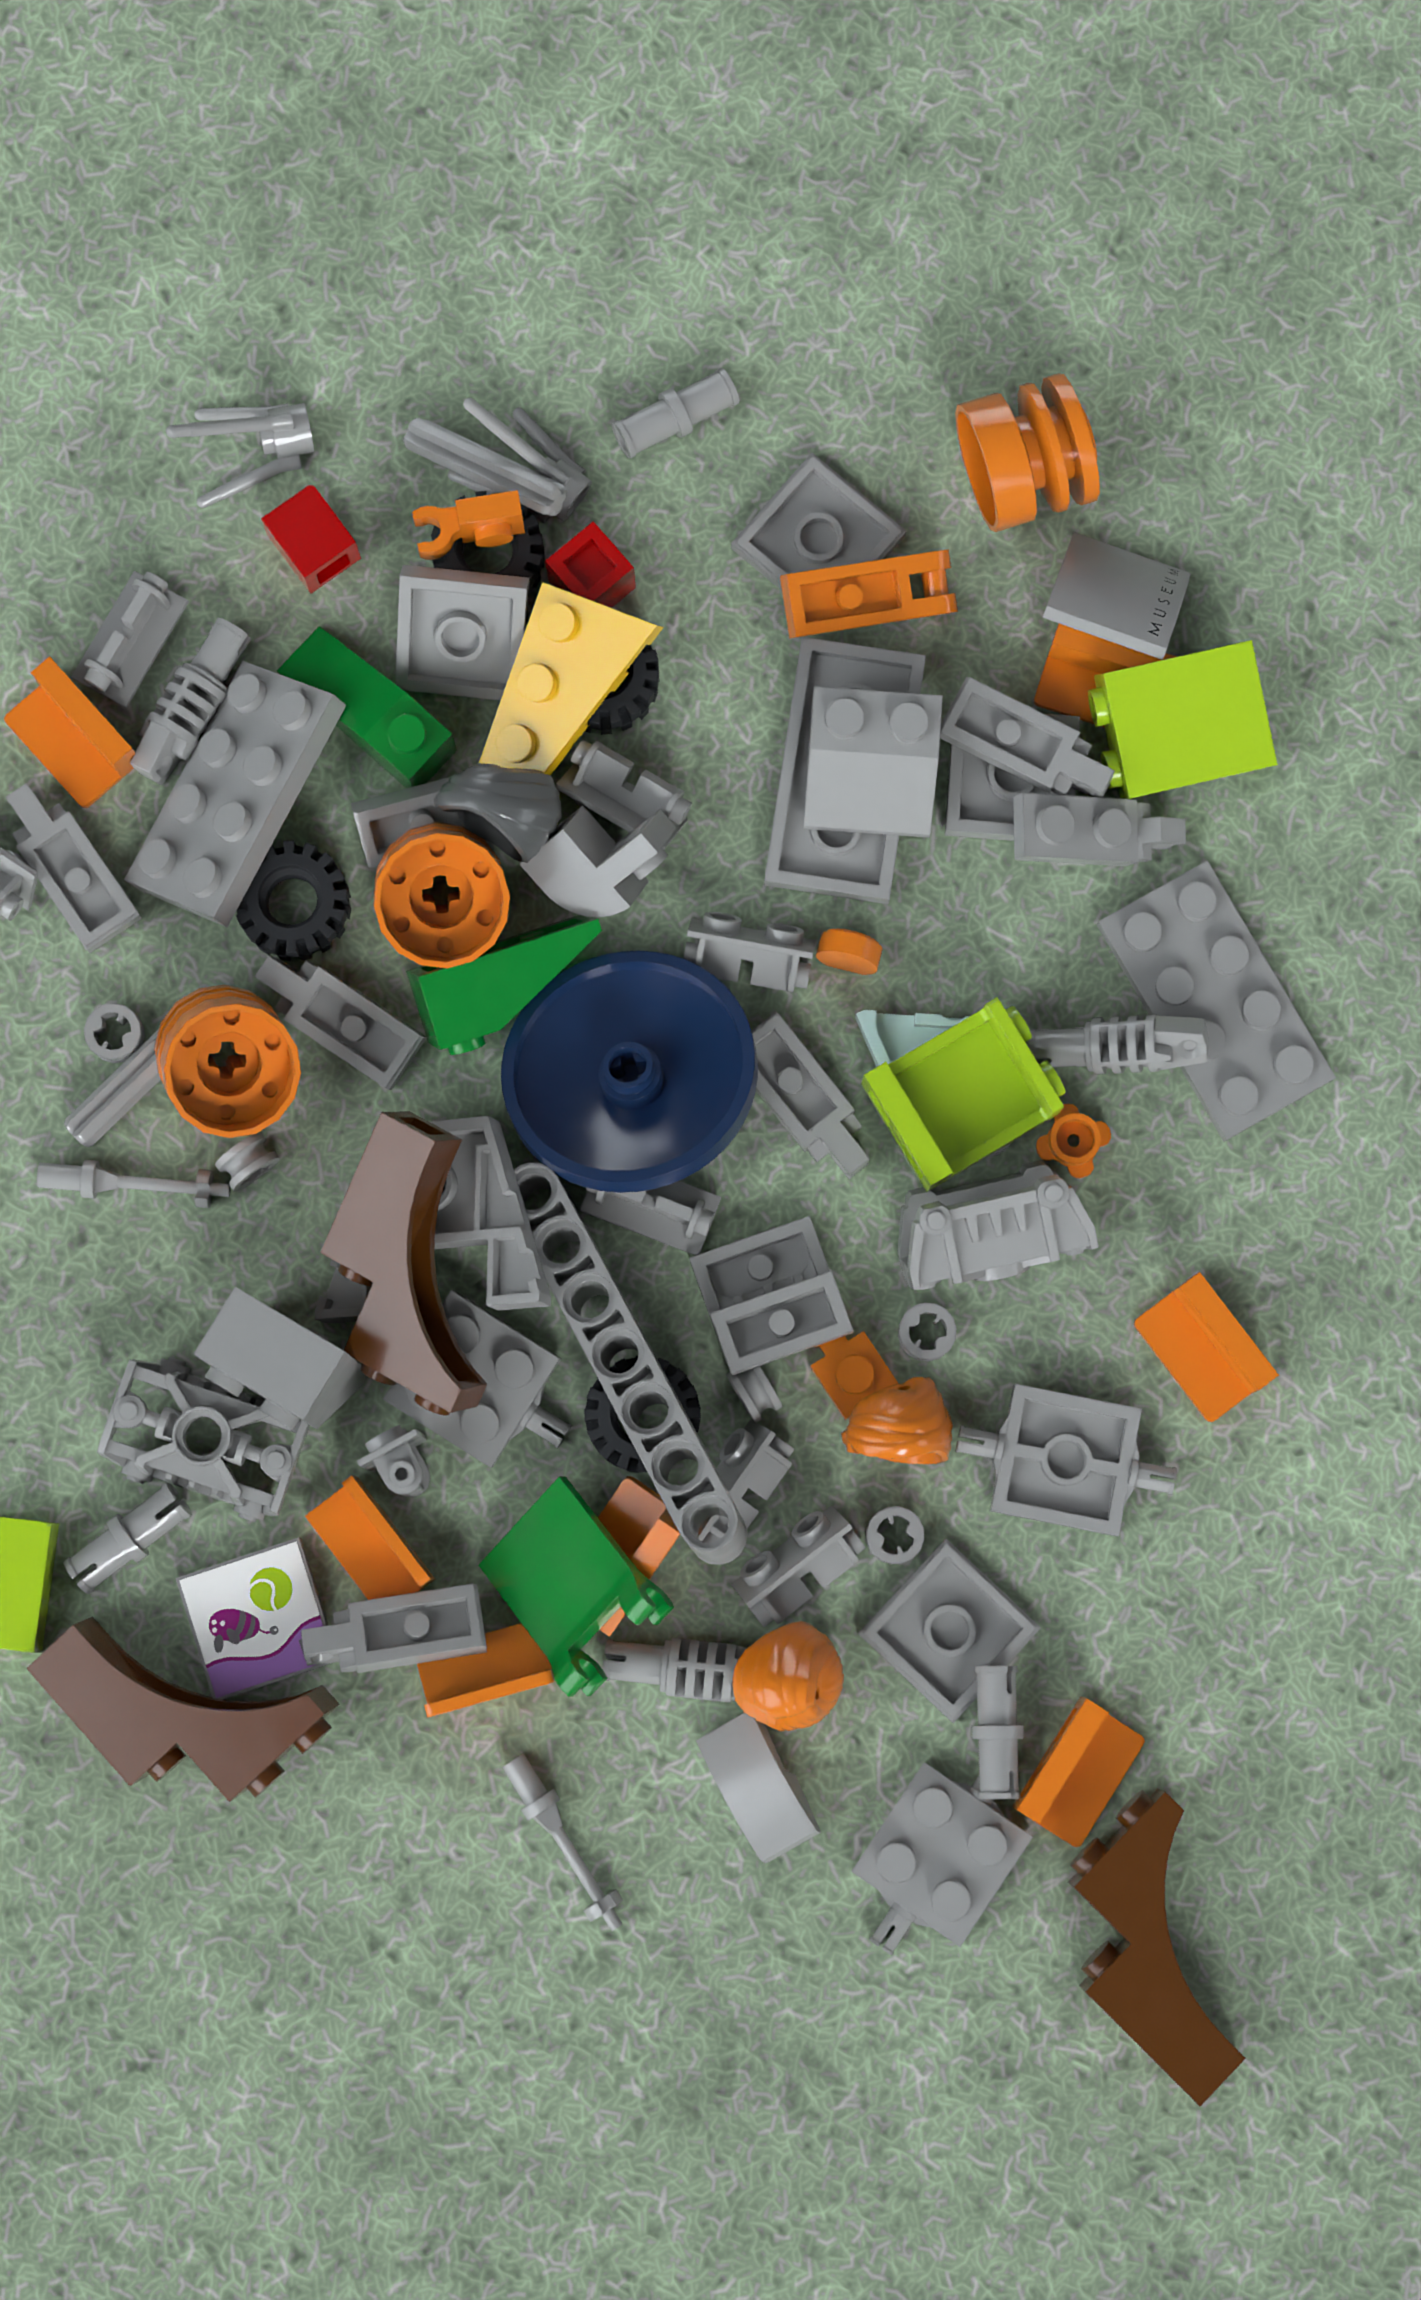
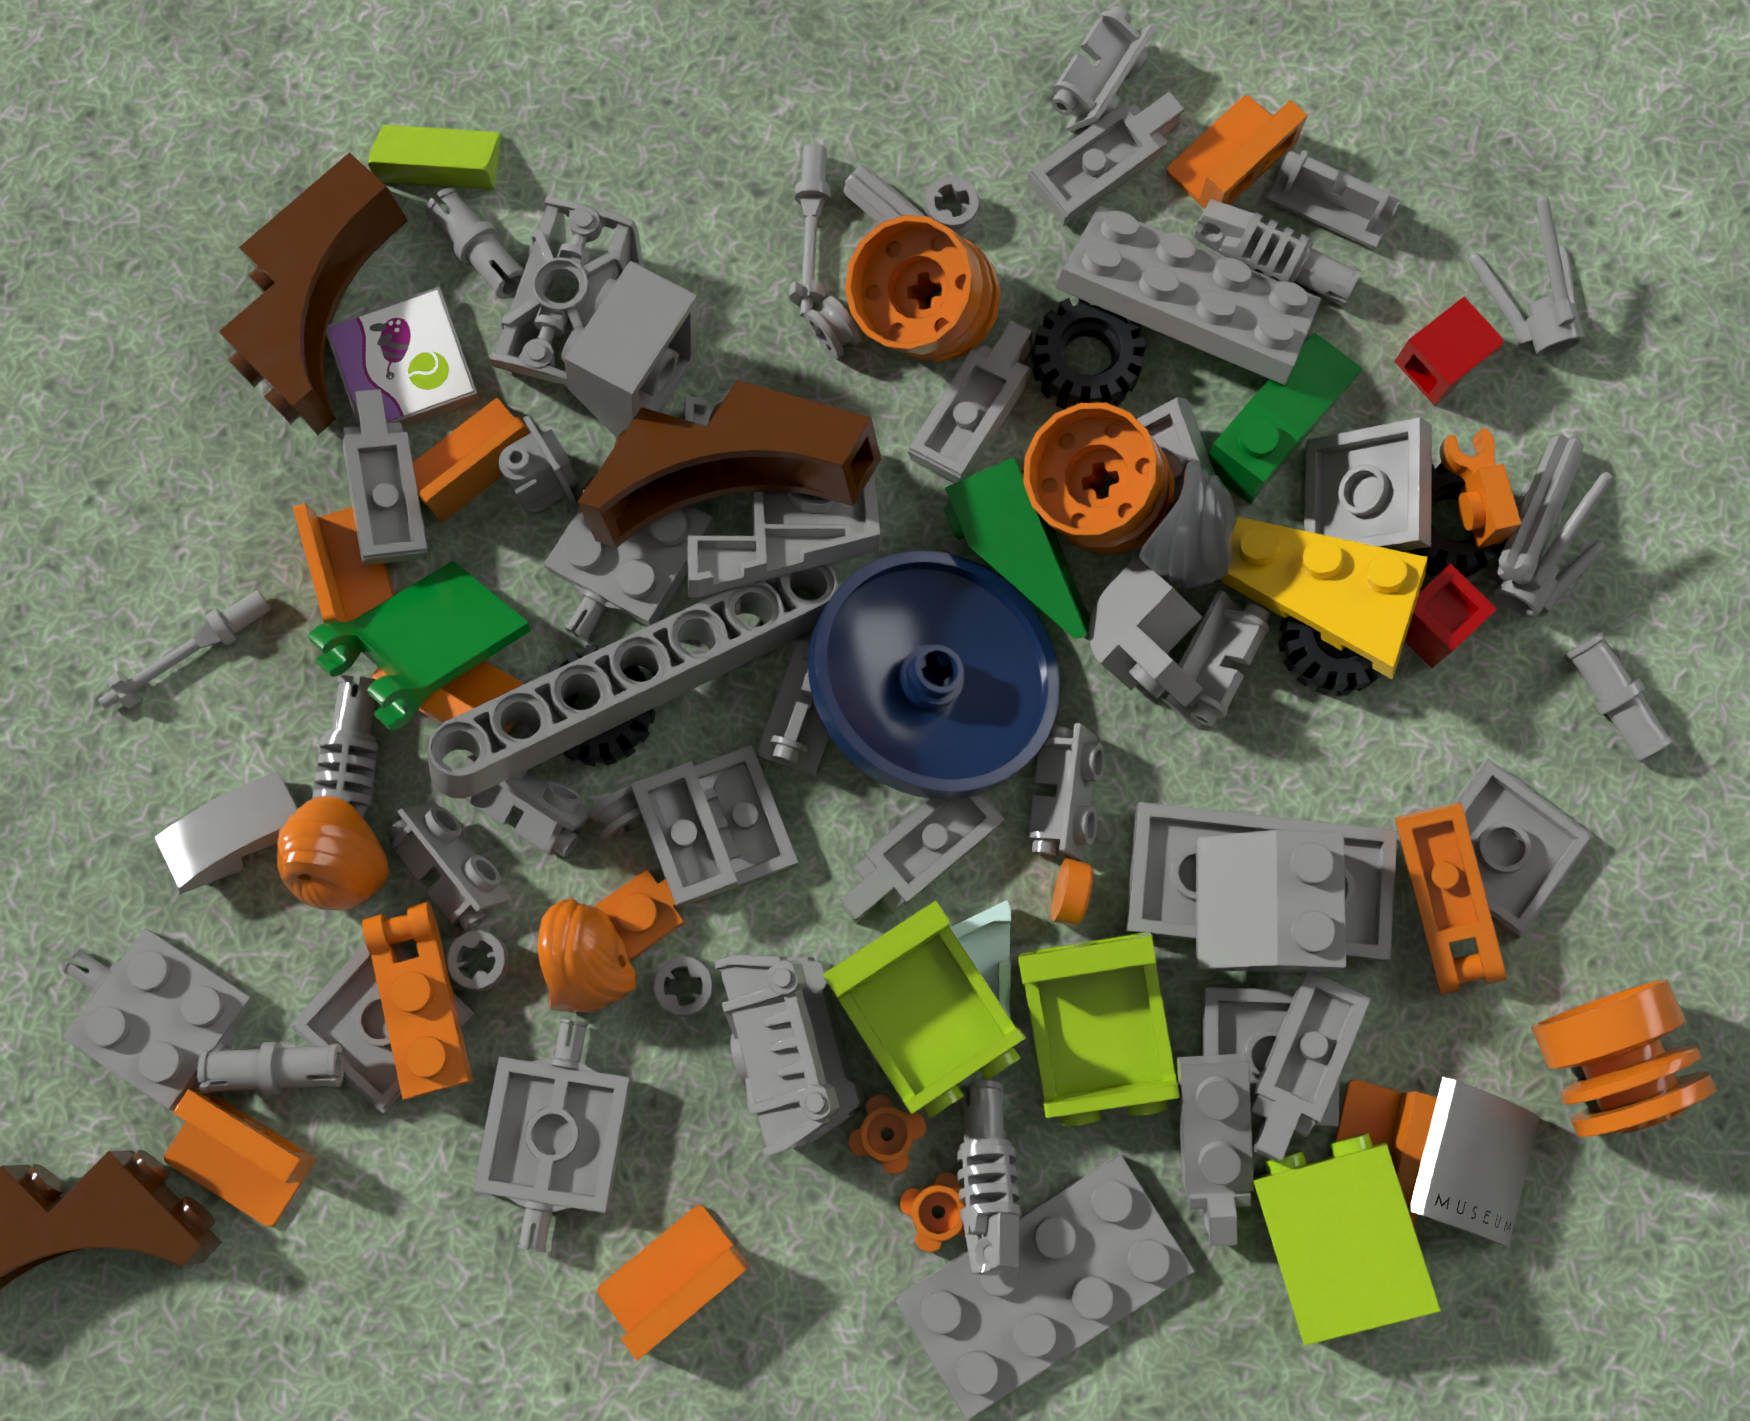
camera: 90 degrees right, 5 degrees down
(937, 1589) = (418, 1003): none -> orange plate
(981, 932) = (1099, 1028): none -> lime panel
(1139, 1112) = (919, 1207): none -> orange plate

